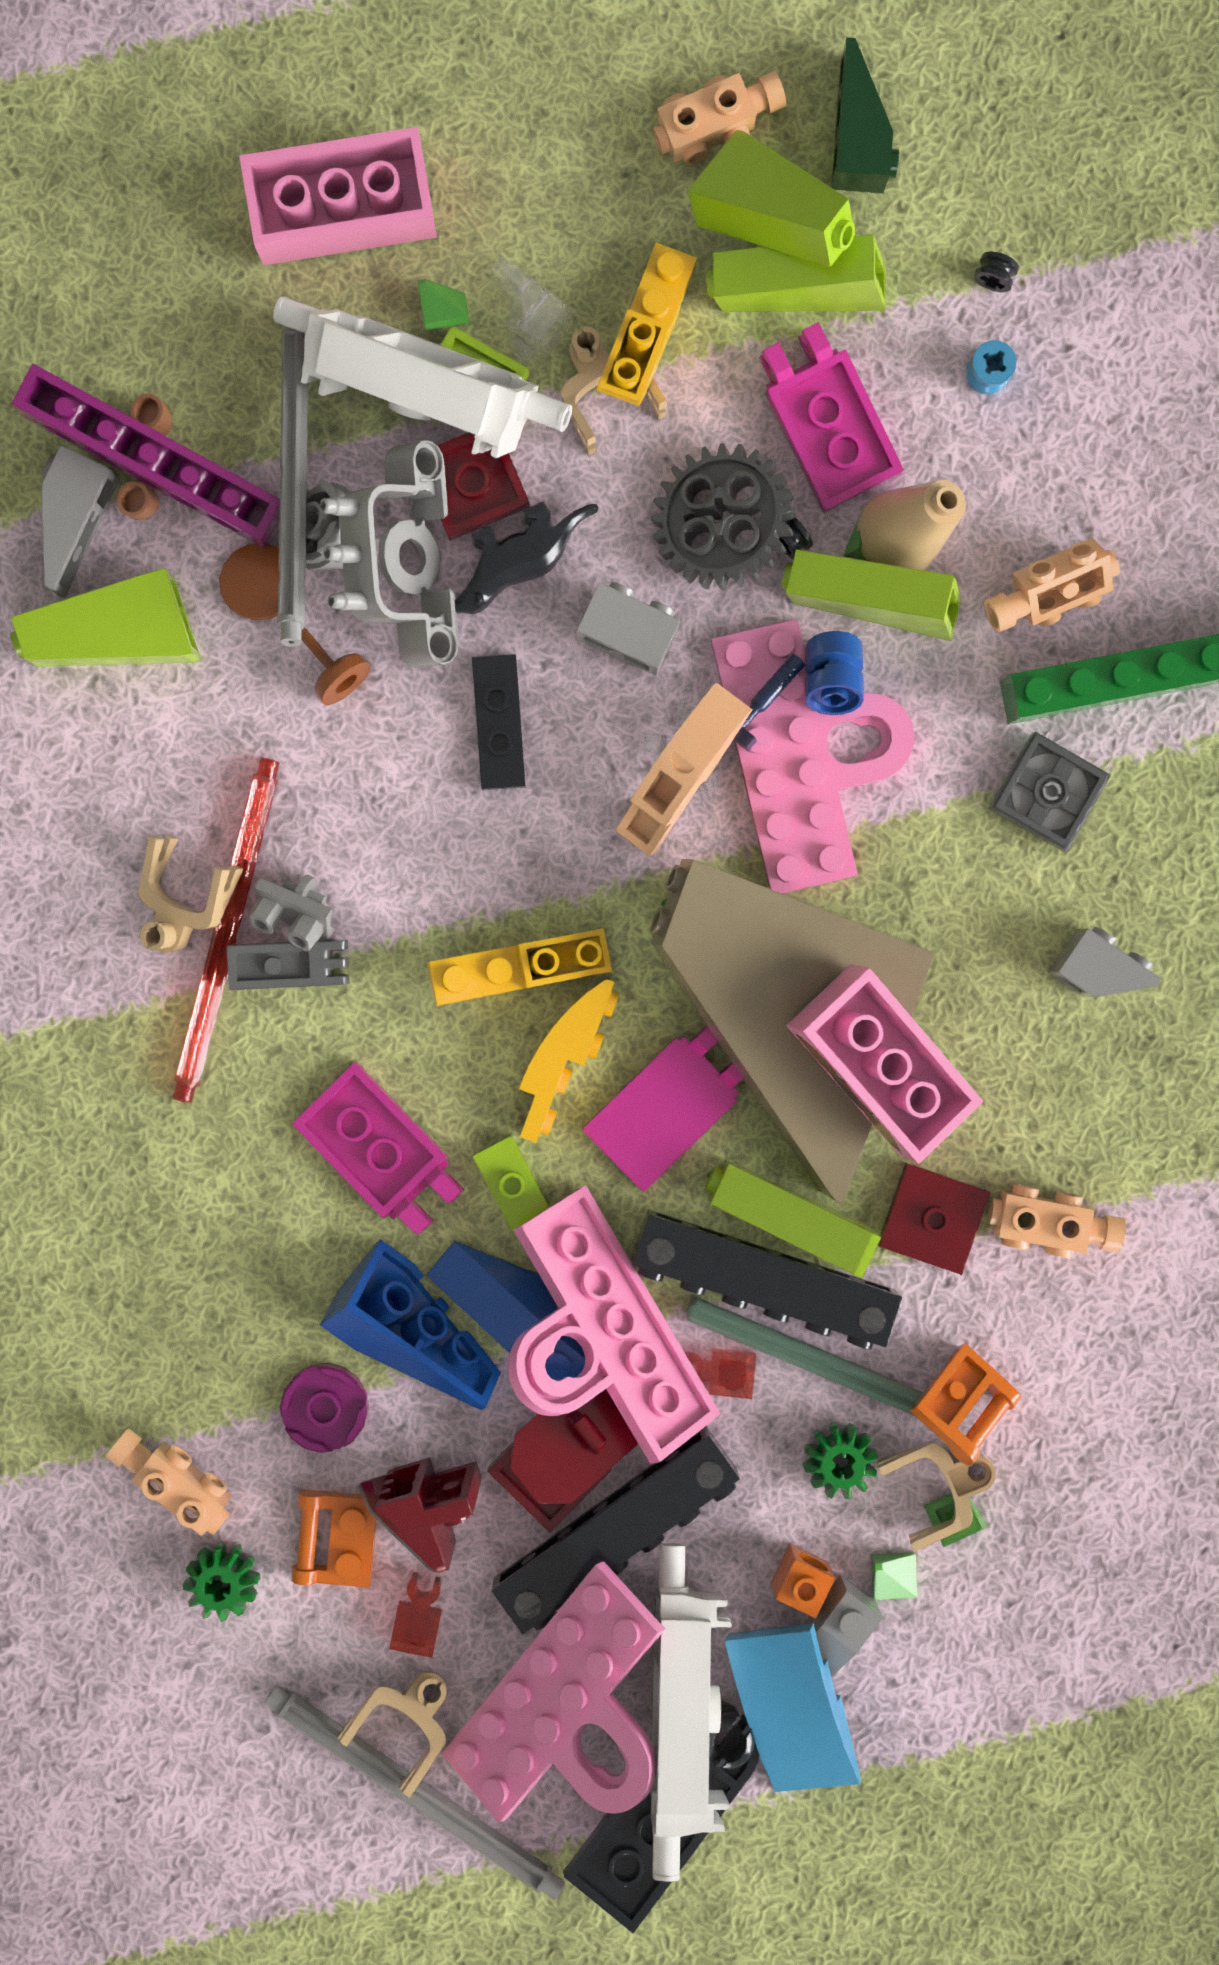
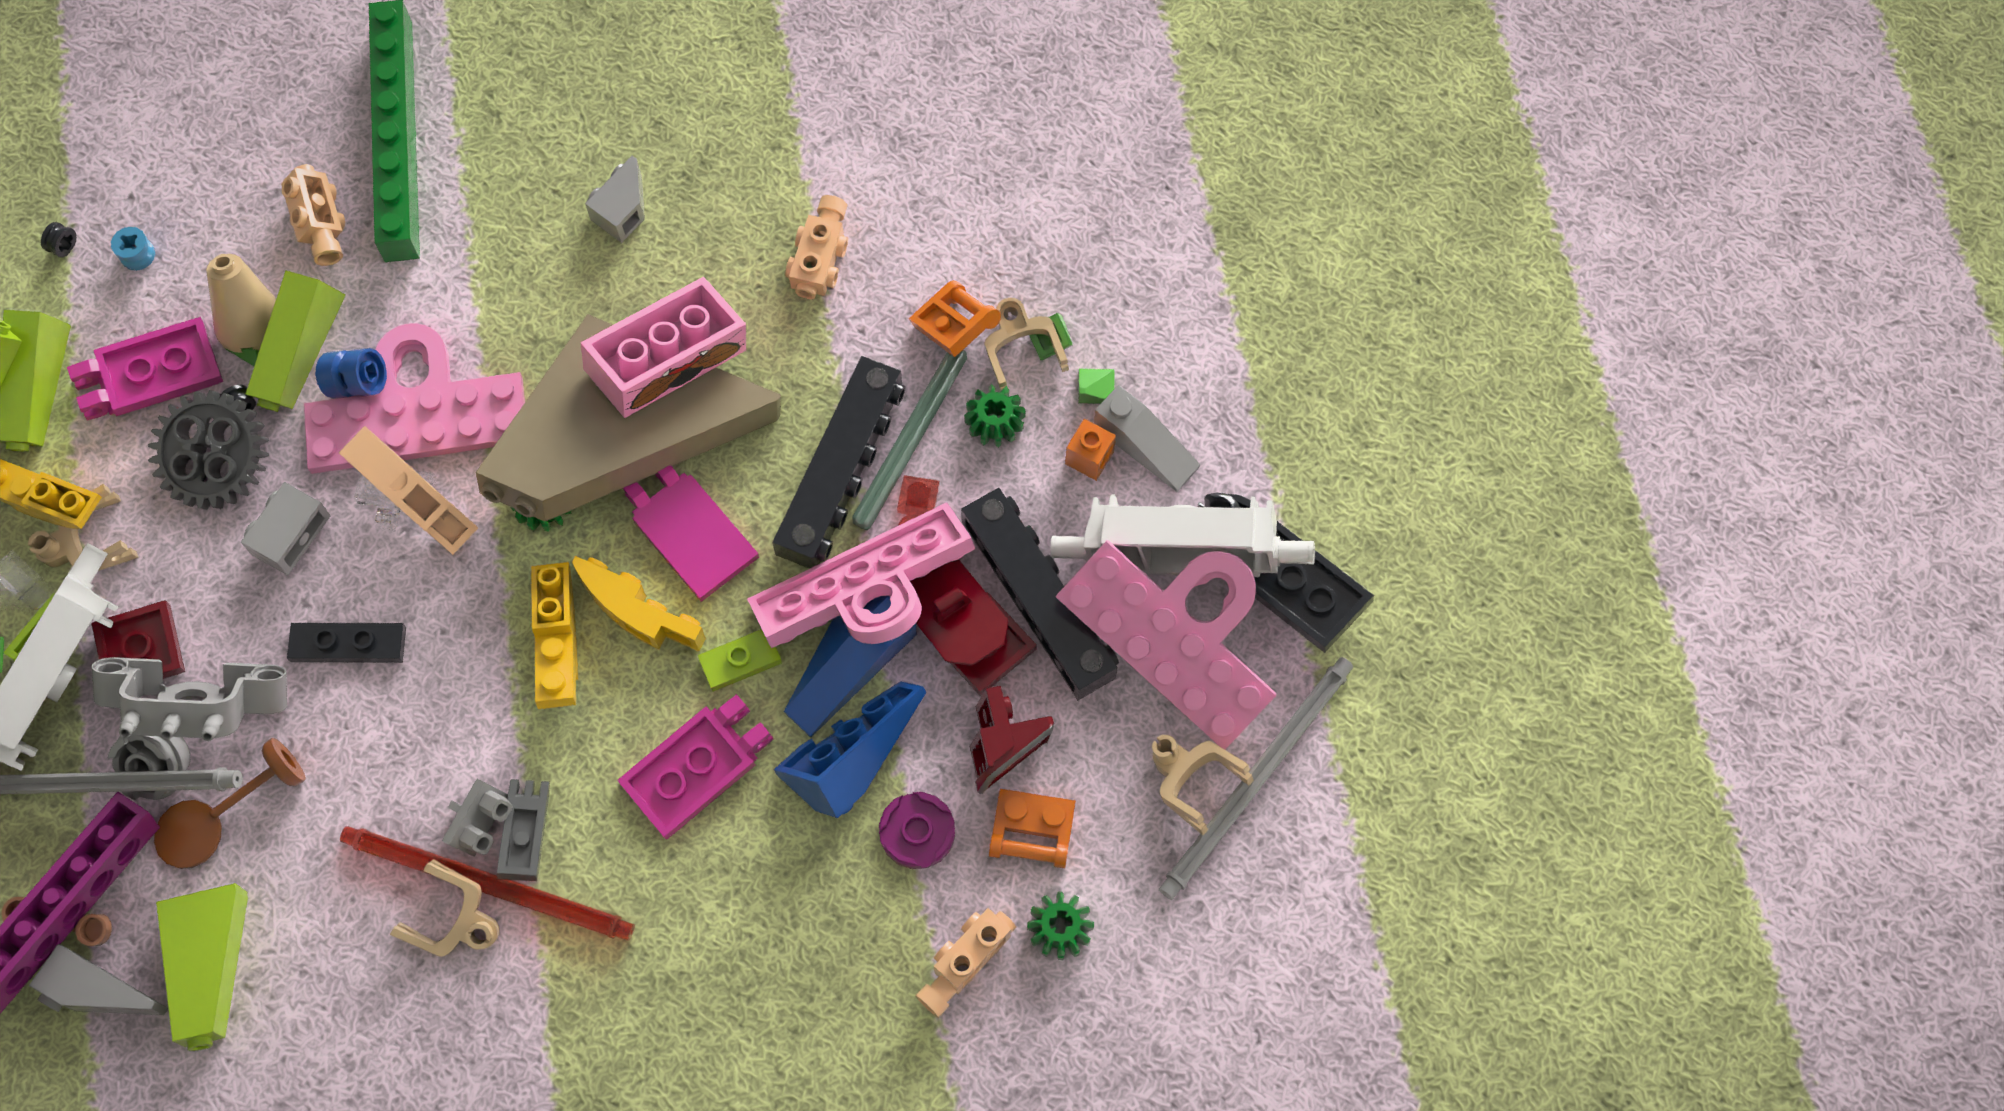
camera: 80 degrees left, 20 degrees down
(417, 1622) = (1110, 762): clear red plate -> none
(518, 556) = (209, 612): black animal -> none
(767, 695) = (357, 422): dark blue piece -> none
(793, 1217) = (789, 433): lime slope -> none
(793, 1708) = (1193, 460): dark azure slope -> none
(933, 1218) = (806, 336): dark red plate -> none
(1049, 791) = (476, 229): dark grey piece -> none

